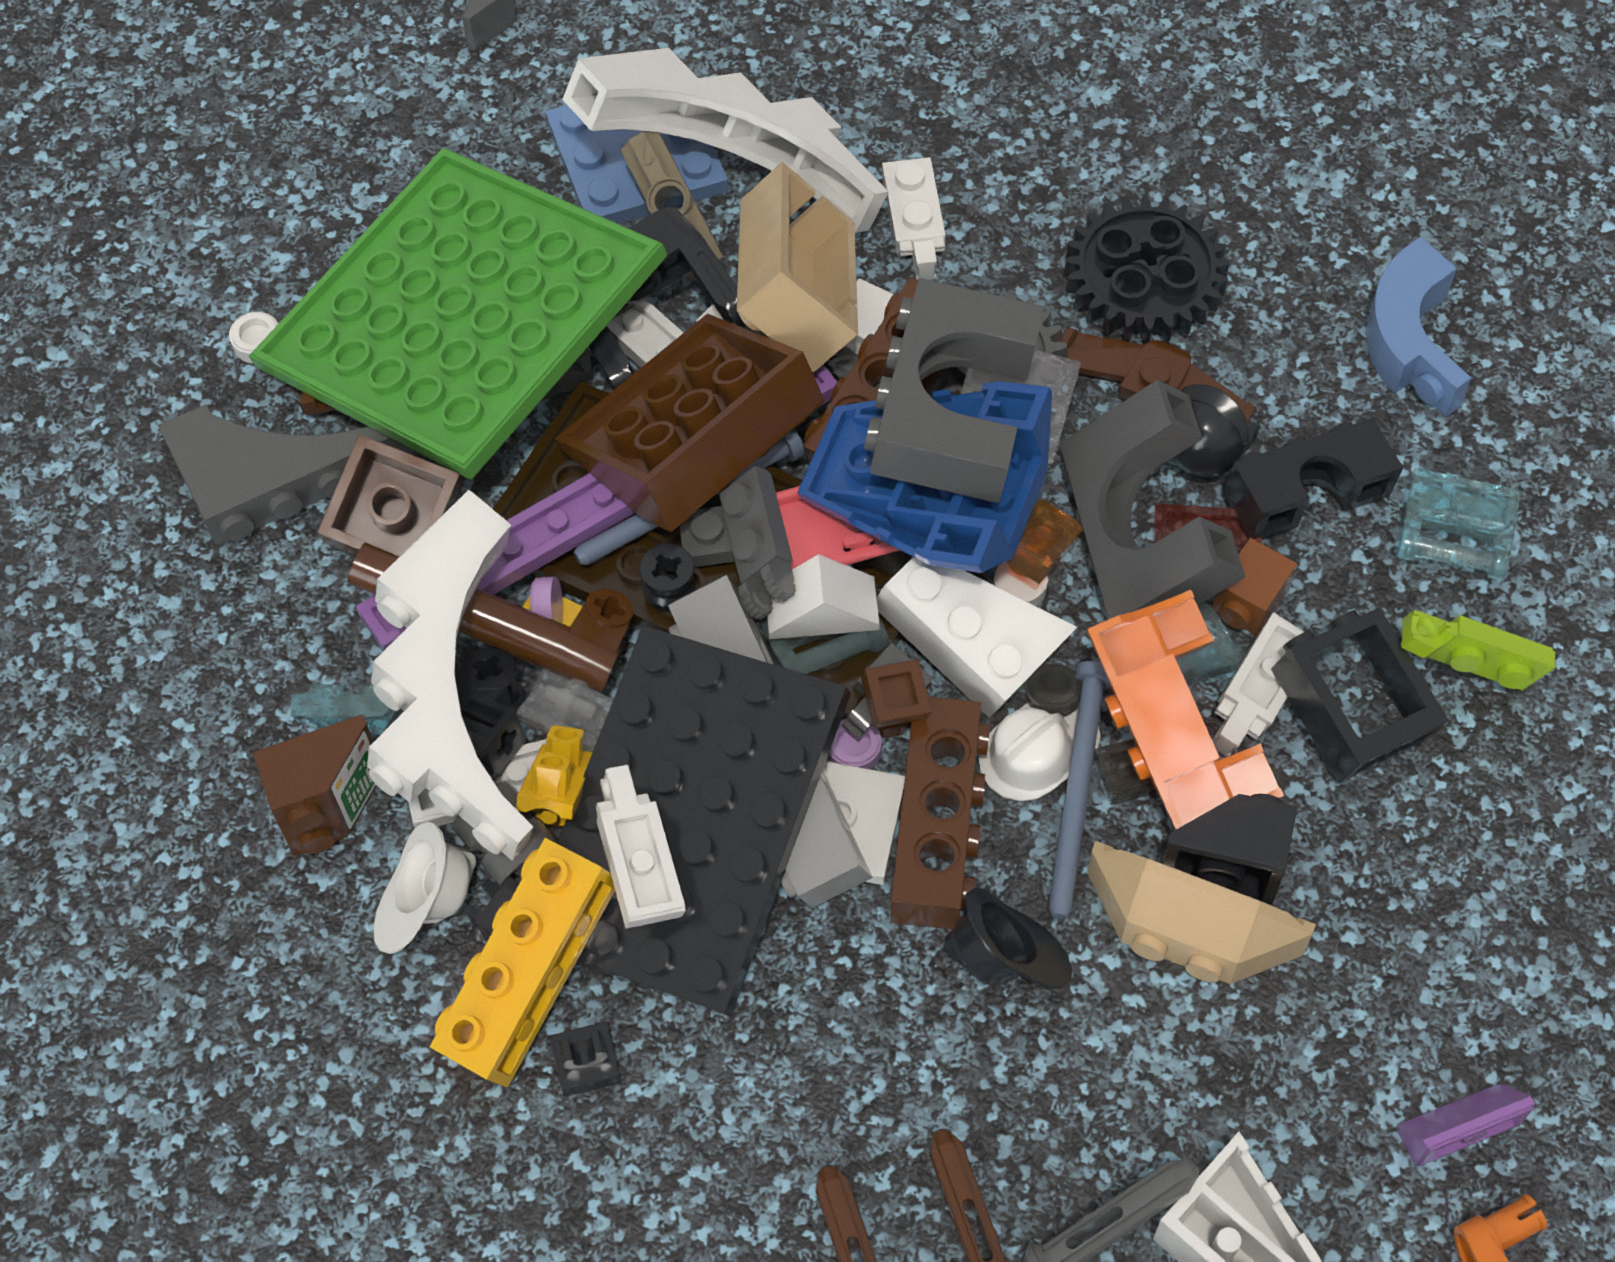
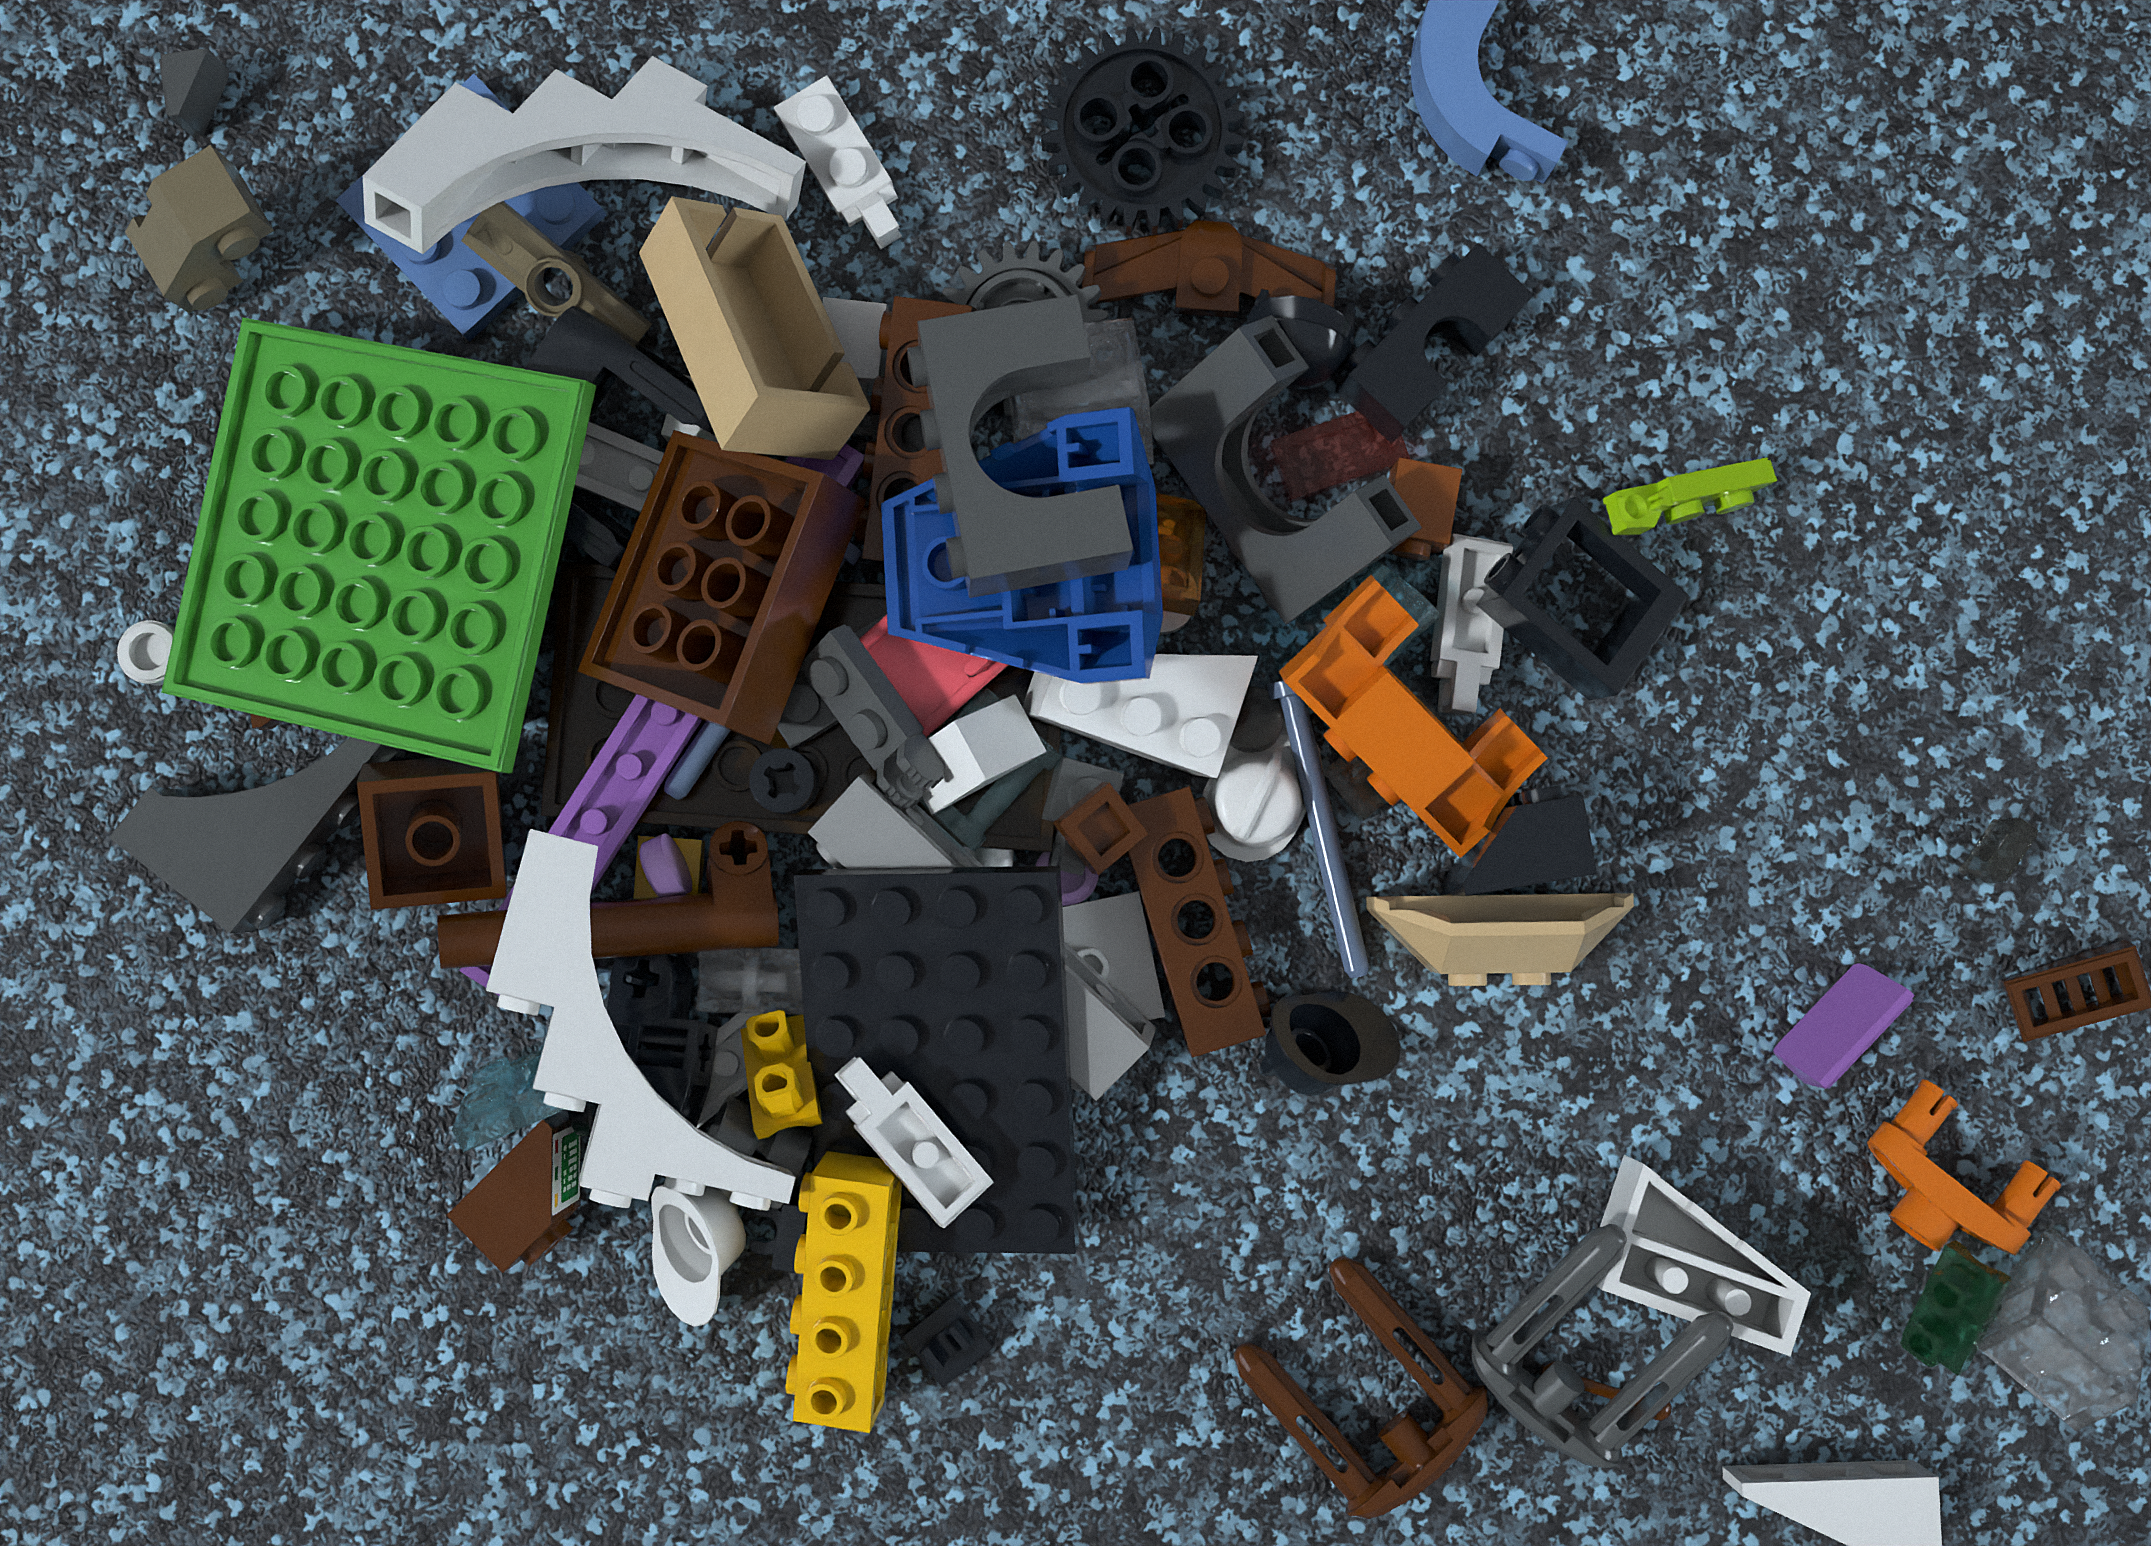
camera: 30 degrees left, 25 degrees up
(445, 77) = (196, 227): none -> dark tan brick
(1463, 509) = (1606, 307): clear light blue plate -> none

